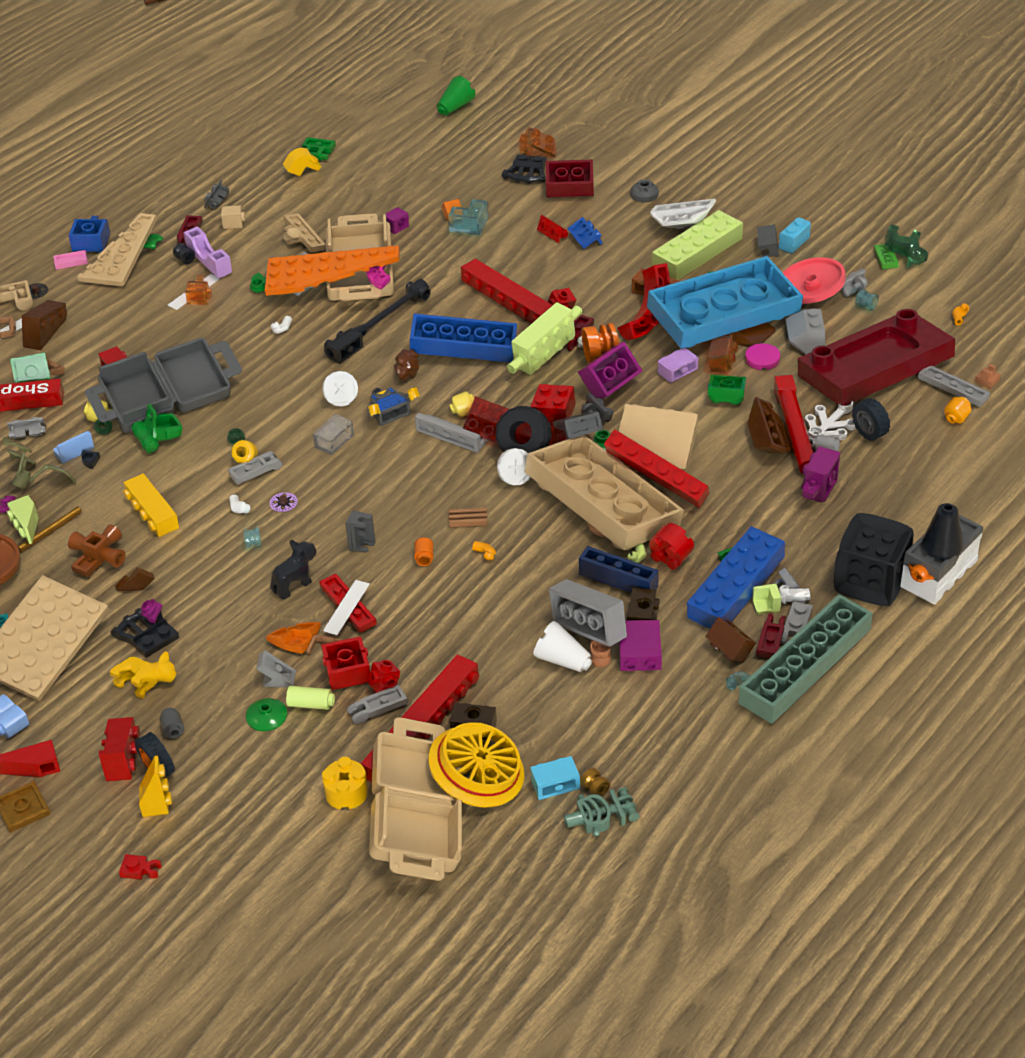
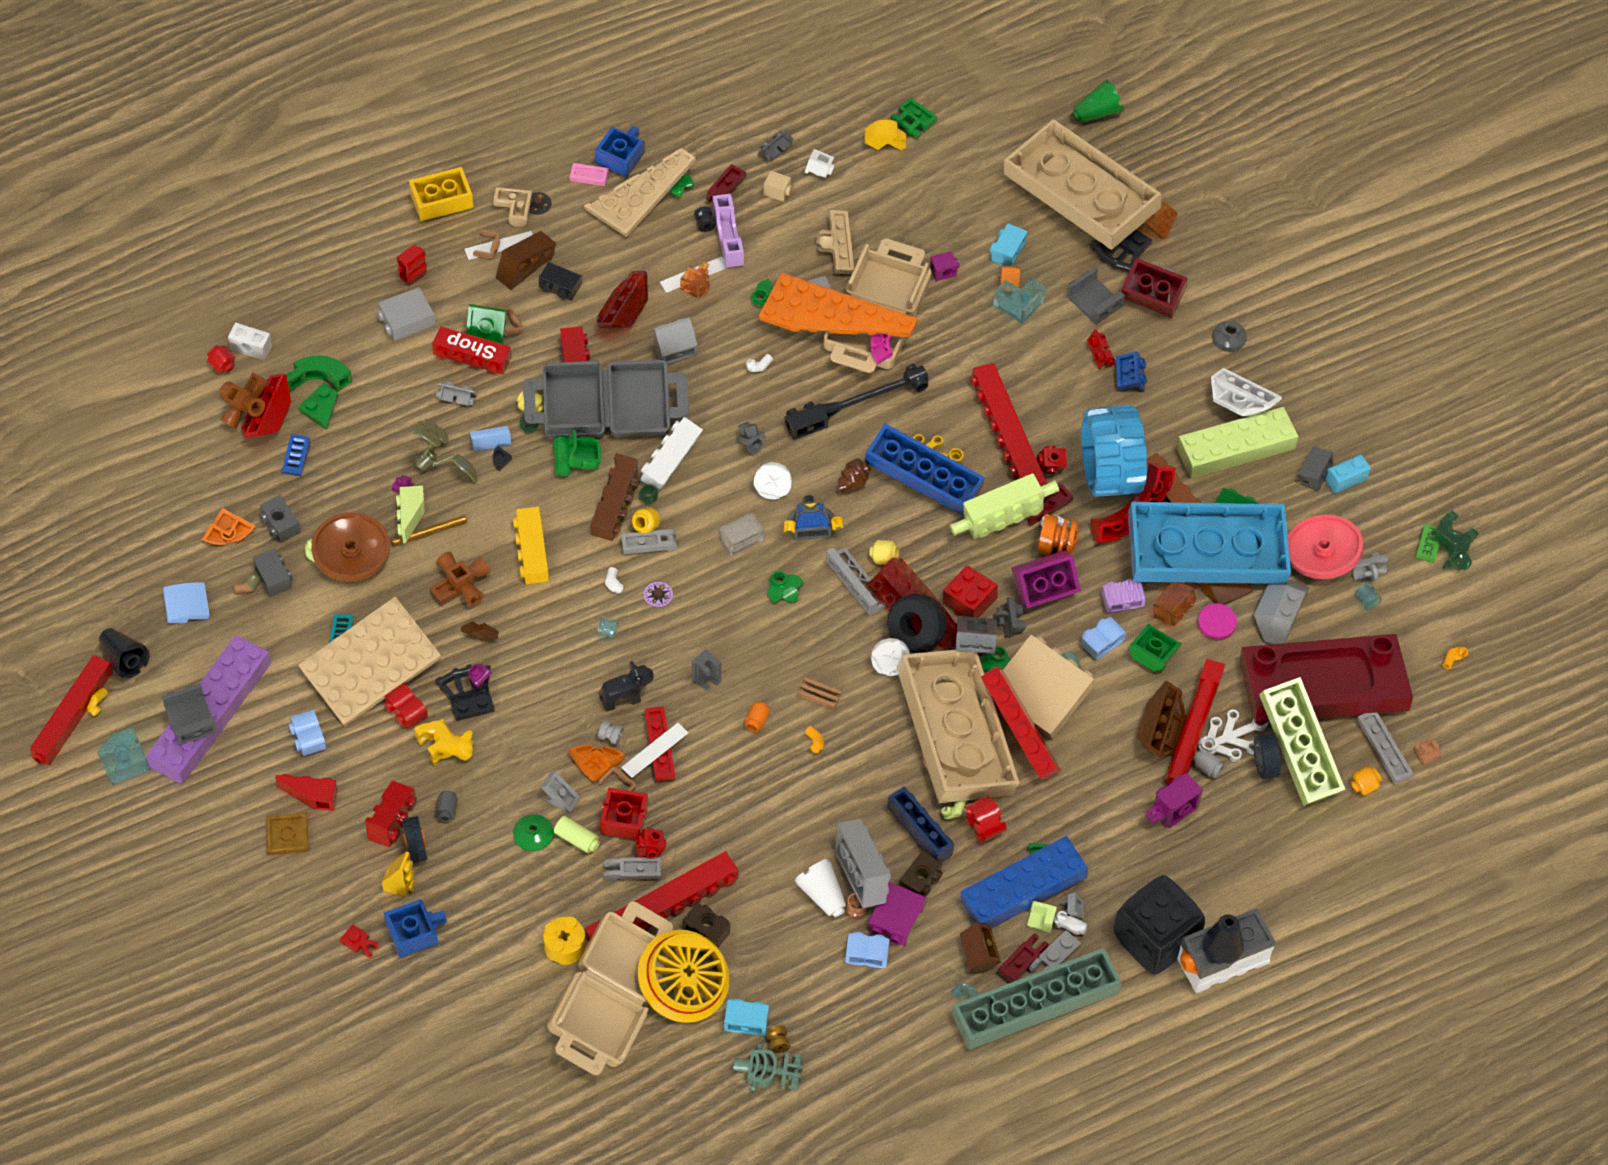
camera: 20 degrees right, 15 degrees up
(81, 328) = (560, 281): none -> black brick
(92, 661) = (405, 706): none -> red brick
(146, 321) = (625, 302): none -> clear red wedge
(189, 831) = (413, 927): none -> blue hinge
(204, 325) = (675, 341): none -> light grey slope
(209, 445) = (616, 497): none -> reddish brown wedge
(241, 401) = (671, 454): none -> white brick
(259, 193) = (820, 164): none -> white brick
(298, 610) = (613, 733): none -> light grey wheel
(302, 366) = (751, 437): none -> dark grey hips
(391, 457) = (786, 589): none -> green plate
(438, 192) = (1009, 245): none -> medium azure brick
(474, 137) = (1082, 184): none -> tan piece
(525, 204) = (1093, 297): none -> dark grey panel
(611, 268) = (1113, 450): none -> dark azure wheel
(631, 682) = (867, 950): none -> light blue brick
(680, 395) = (1103, 638): none -> light blue brick
(904, 402) = (1301, 741): none -> yellowish green brick

